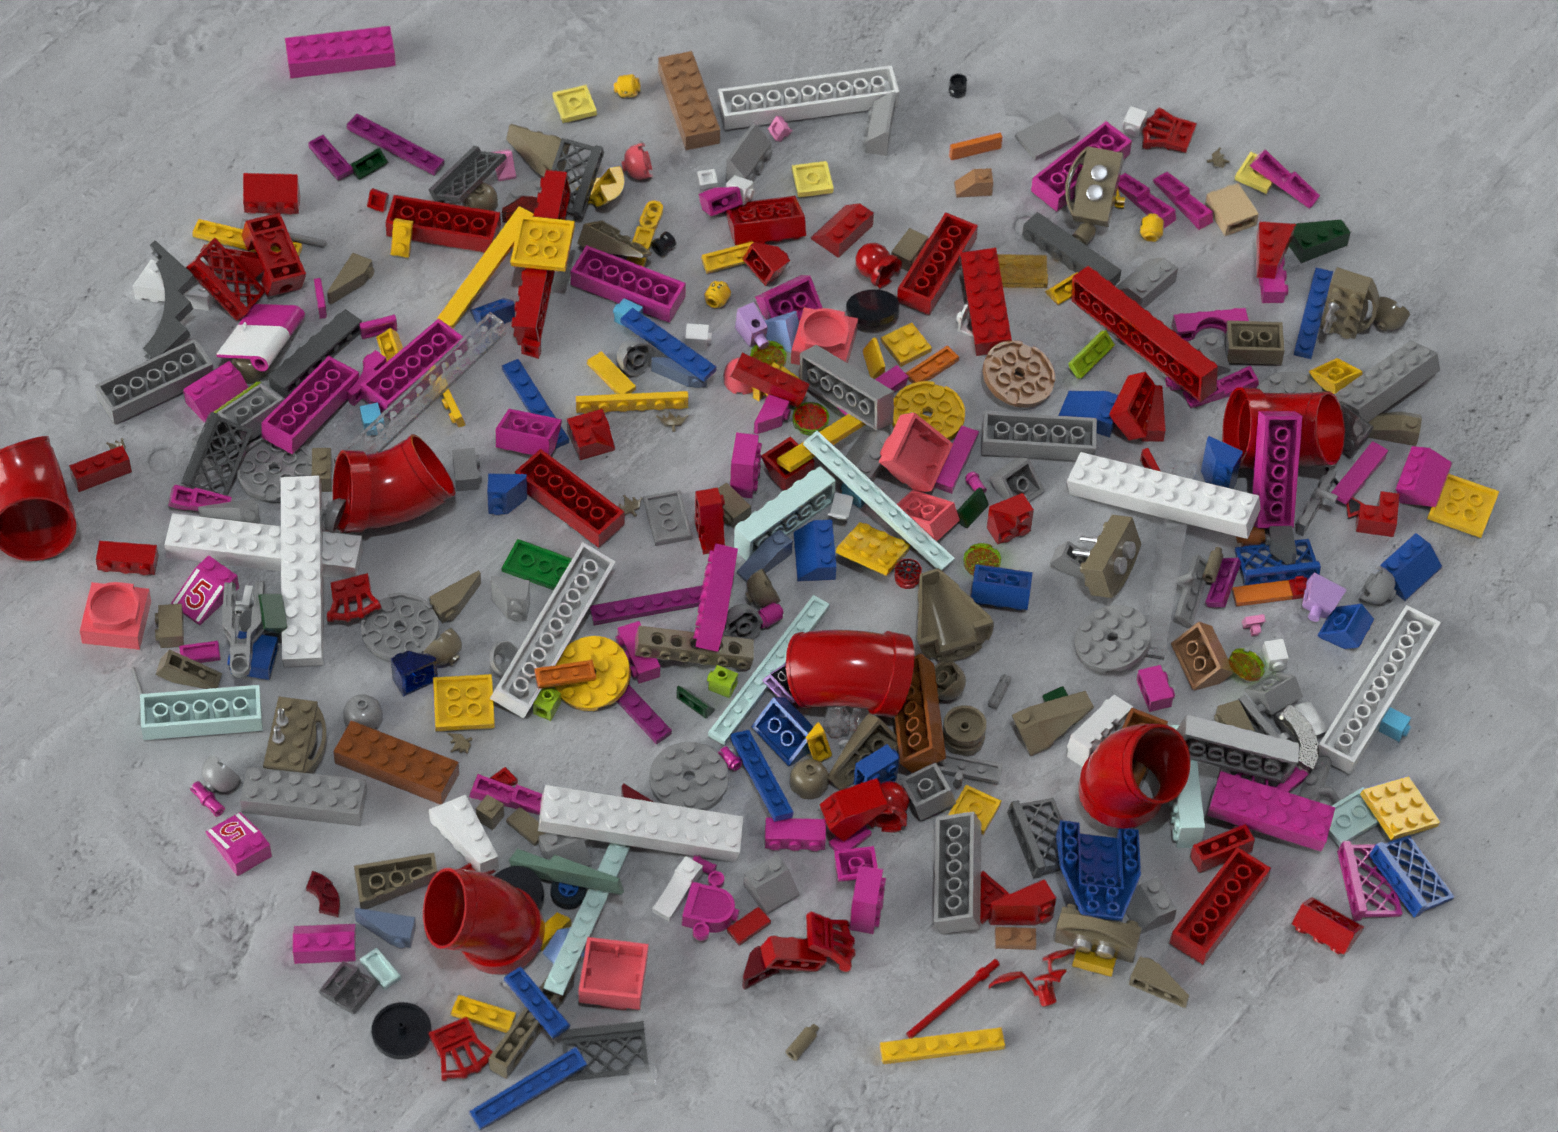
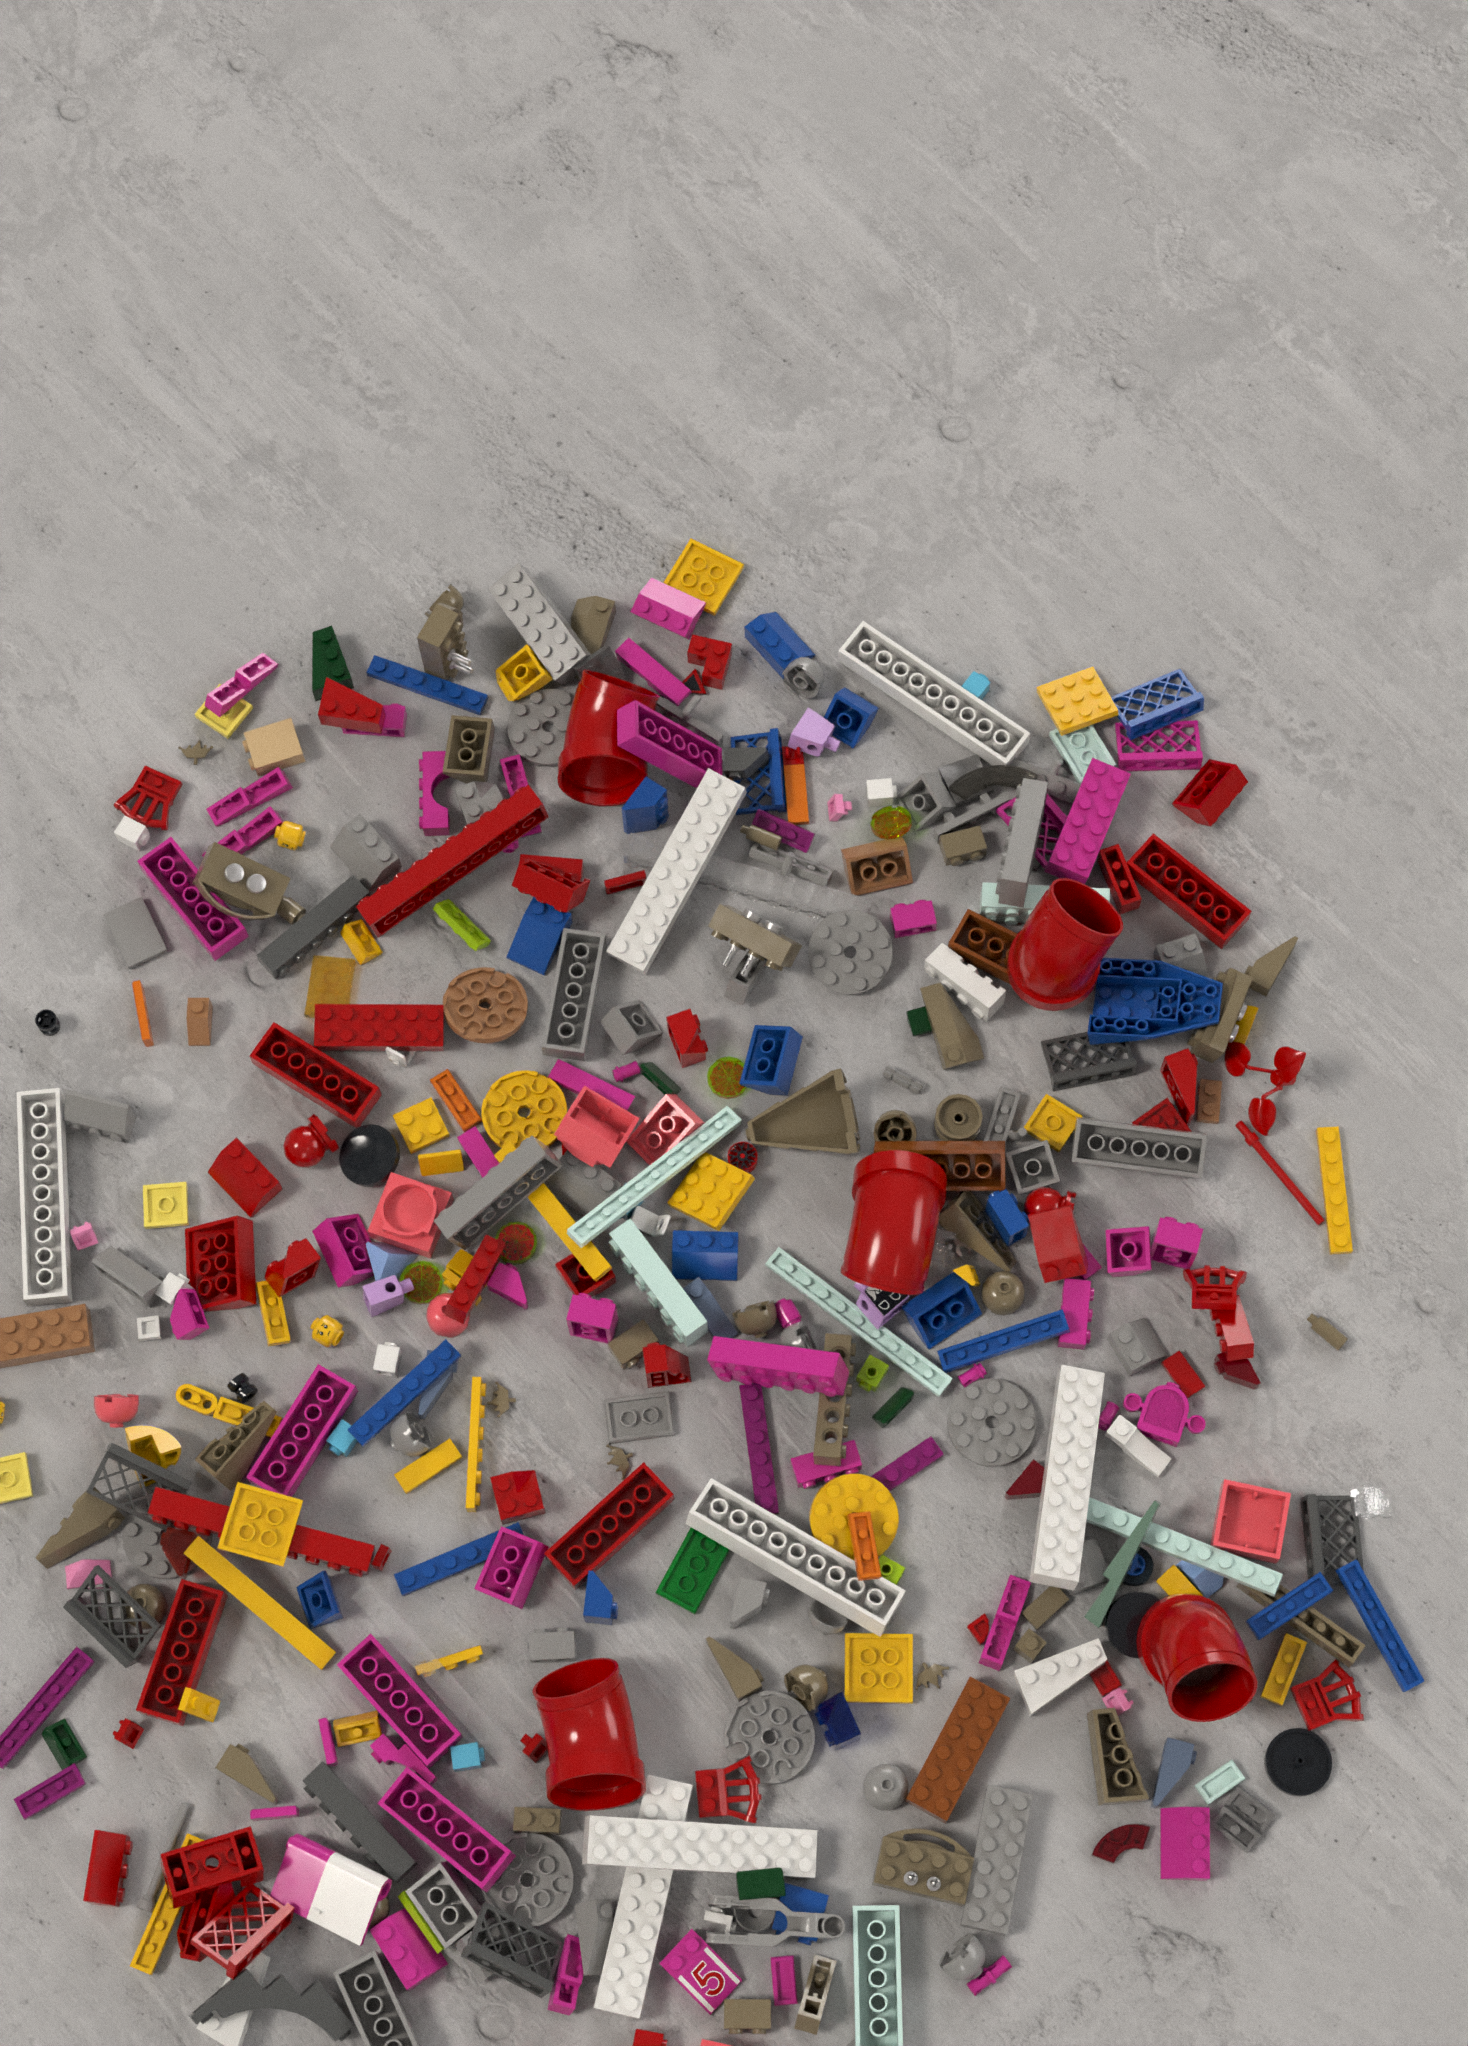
camera: 80 degrees left, 15 degrees up
(240, 843) = (1049, 1940): dark pink slope -> none
(333, 513) = (620, 1804): light grey piece -> none
(909, 247) = (288, 1105): dark tan brick -> none

